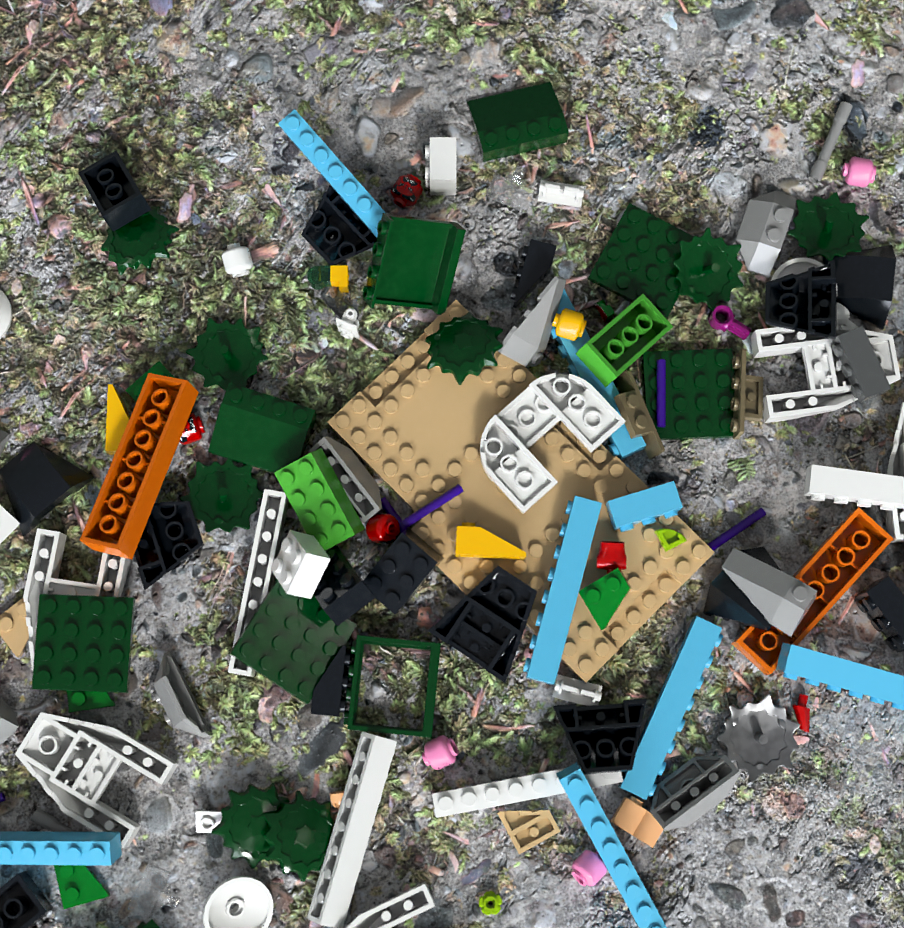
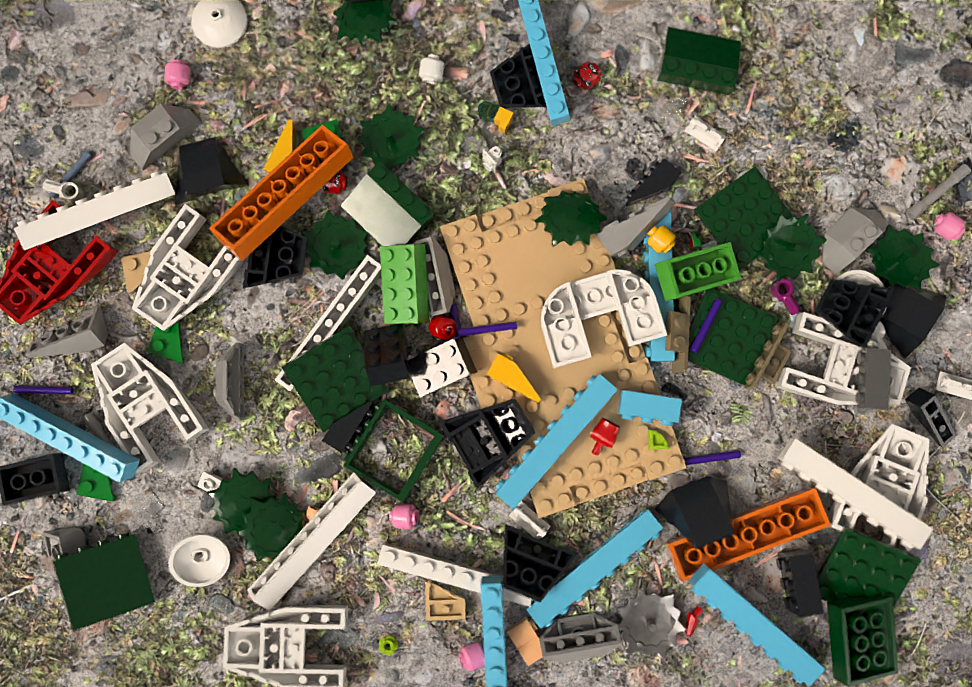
camera: 30 degrees right, 5 degrees up
(83, 643) = (178, 307): dark green plate -> none
(300, 564) = (365, 325): white brick -> none
(413, 262) = (563, 133): dark green panel -> none
(441, 166) = (622, 68): white brick -> none
(605, 596) = (585, 461): green wing -> none
(775, 594) = (715, 522): light grey wedge -> none

